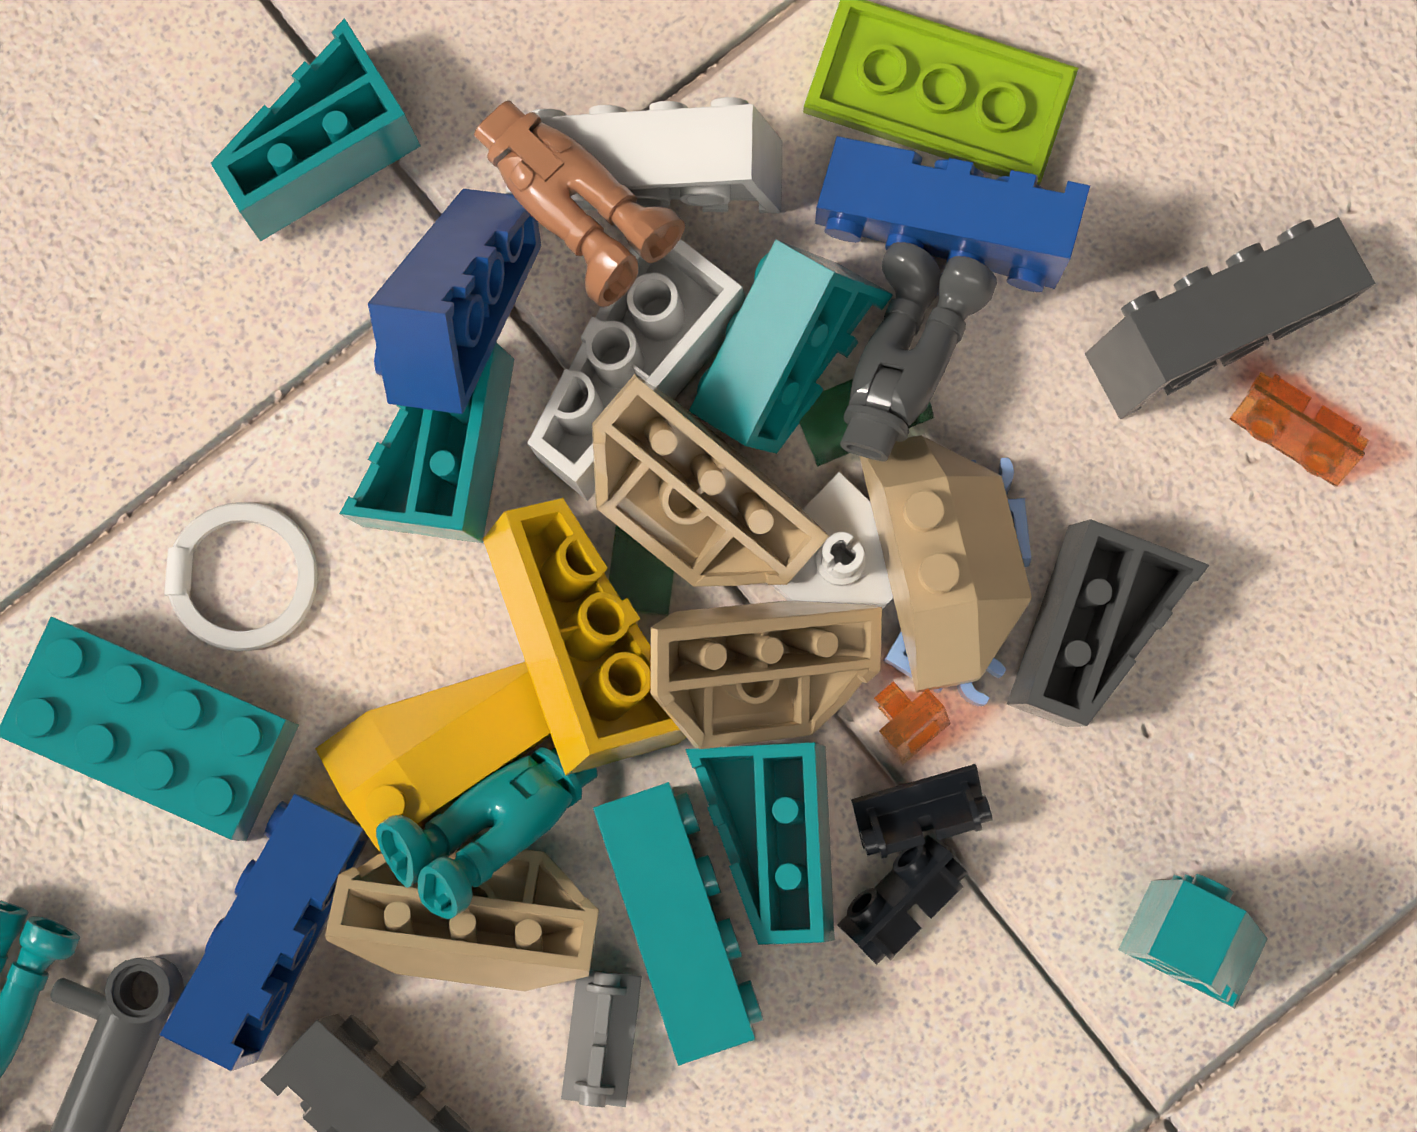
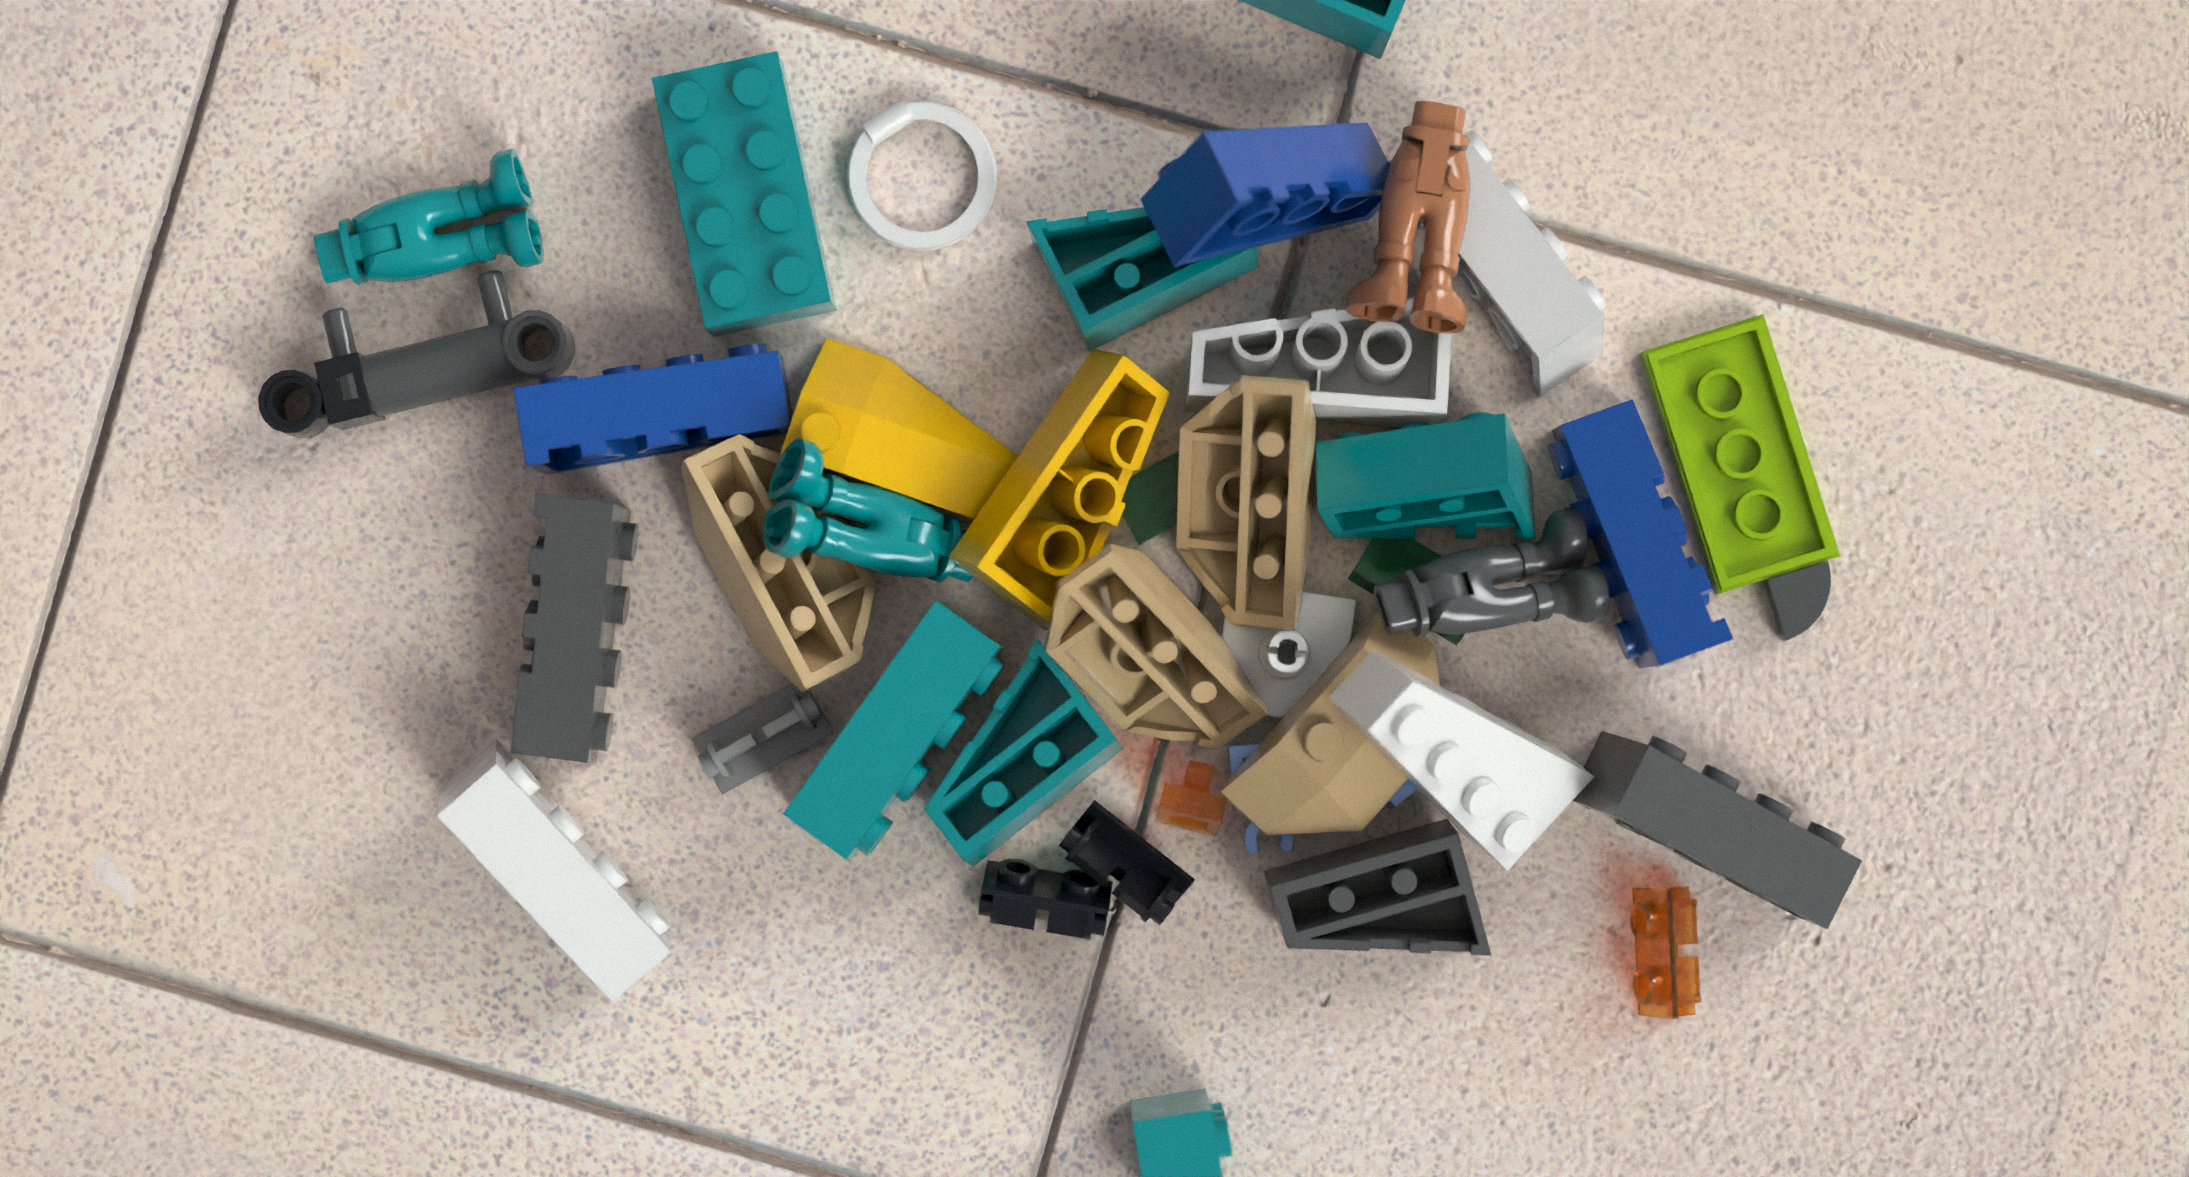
camera: 45 degrees right, 5 degrees up
(1032, 475) = (1469, 763): none -> white wedge
(1089, 124) = (1798, 598): none -> dark grey tile

